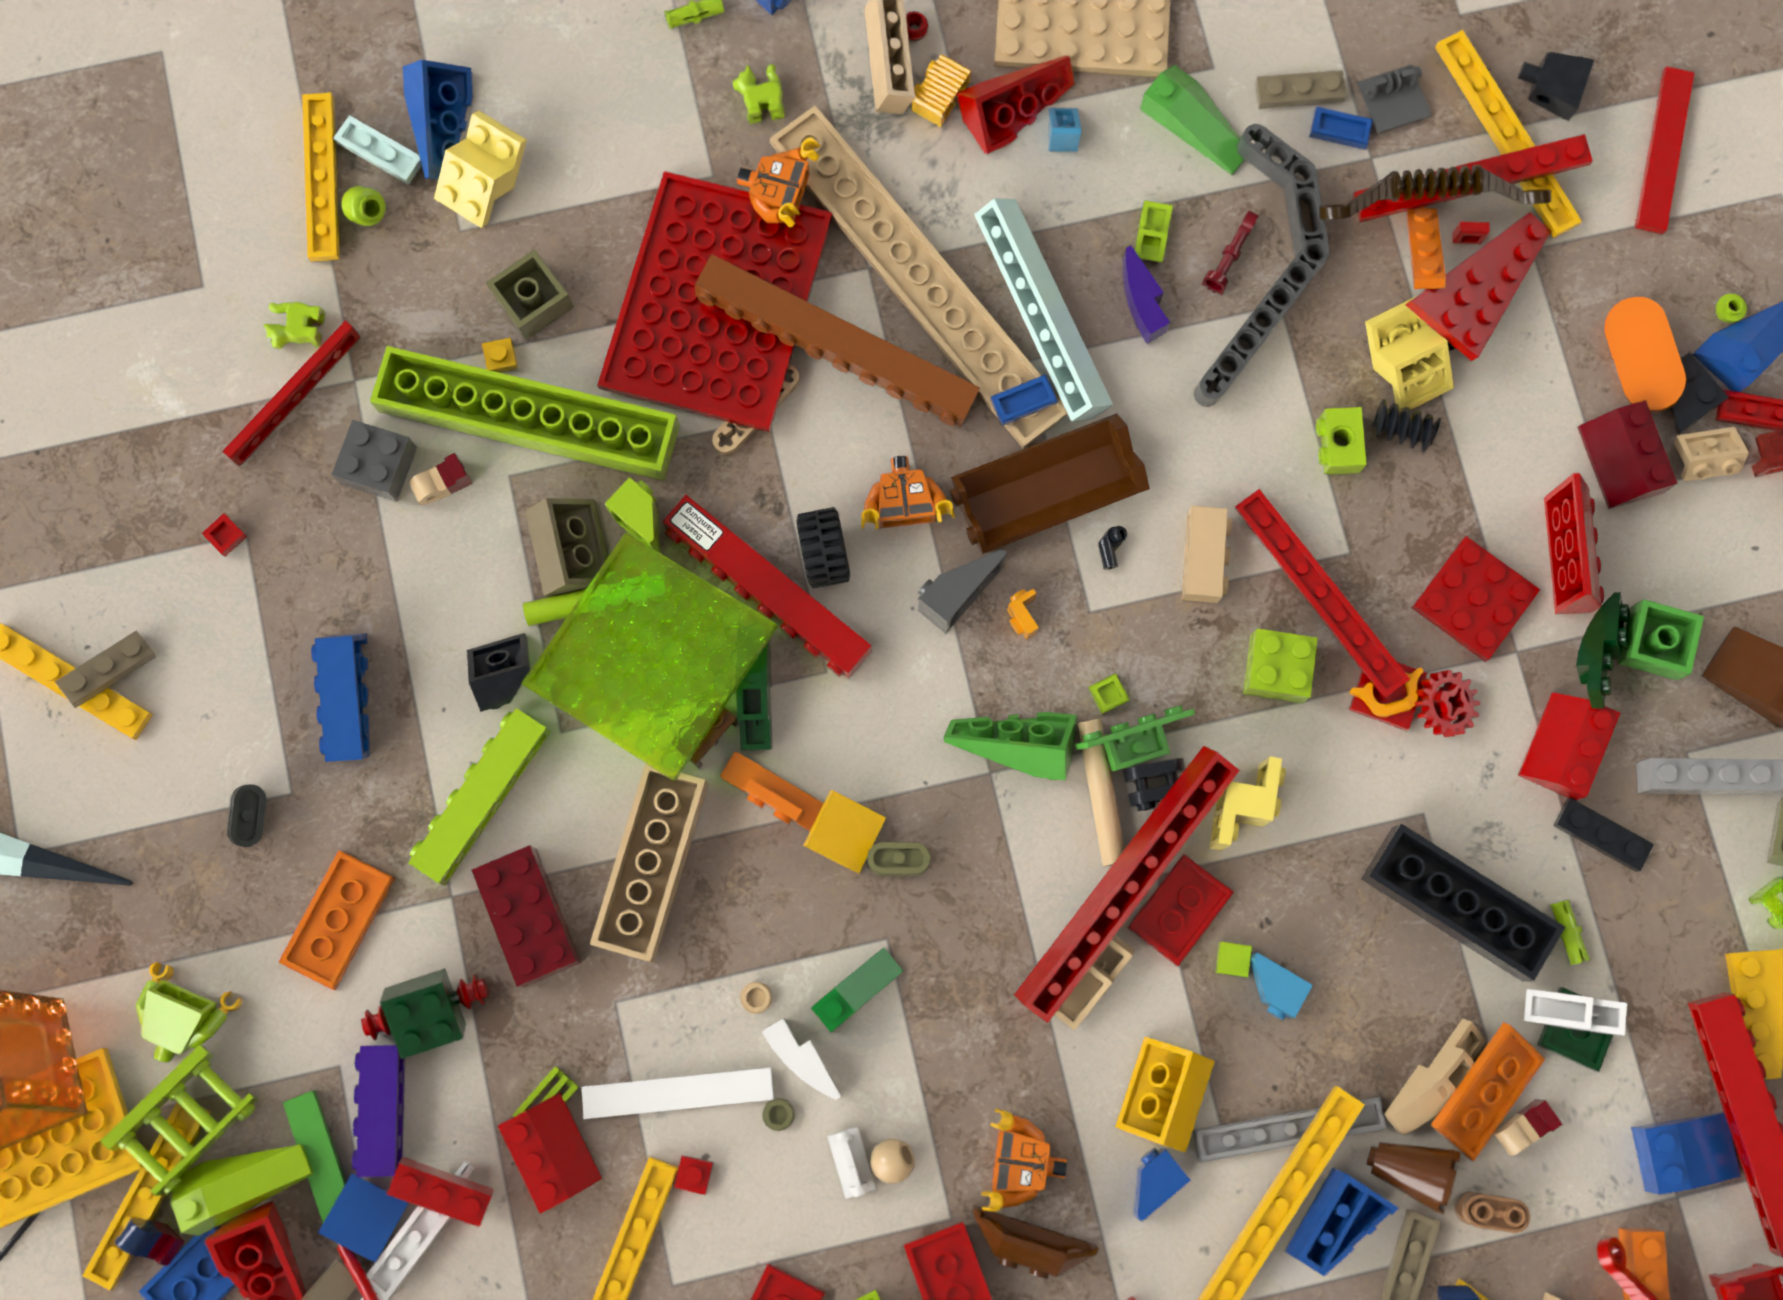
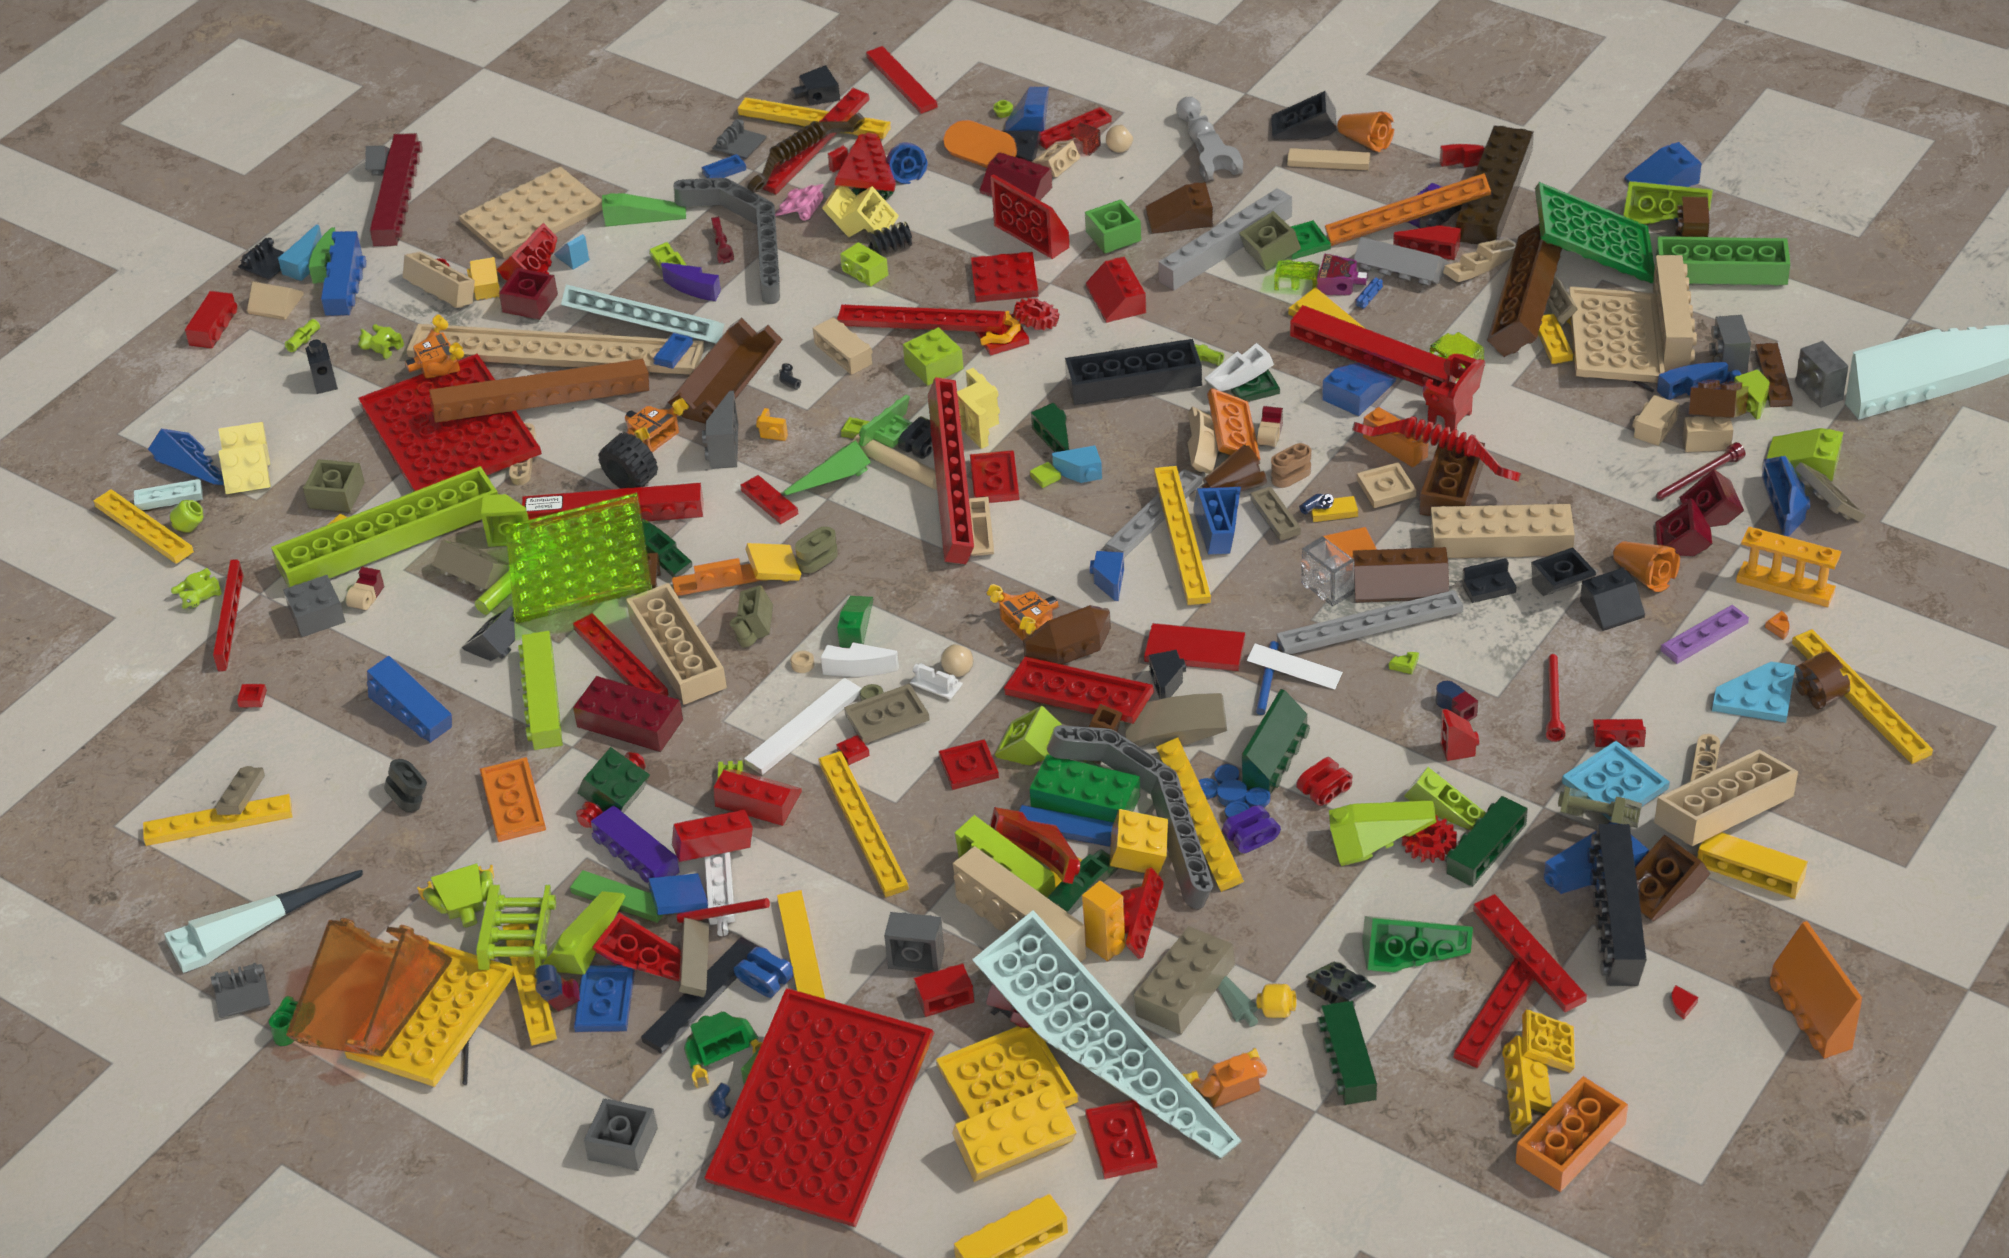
camera: 40 degrees left, 35 degrees down
(588, 825) = (617, 655): none -> red plate
(664, 85) = (319, 359): none -> black torso
(755, 896) = (753, 616): none -> olive hinge
(764, 1162) = (886, 713): none -> dark tan plate
(930, 720) = (769, 499): none -> red plate
(958, 163) = (528, 293): none -> dark red brick
(1165, 1094) = (1070, 539): yellow slope -> none
(1300, 89) = (685, 167): dark tan plate -> none
(1302, 902) = (1051, 427): none -> dark green slope
(1369, 266) = (803, 201): none -> bright pink hinge
(1425, 248) = (821, 168): orange plate -> none
(1534, 313) = (907, 162): none -> blue cylinder
(1601, 645) = (1088, 244): dark green slope -> none
(1603, 834) = (1174, 312): black plate -> none

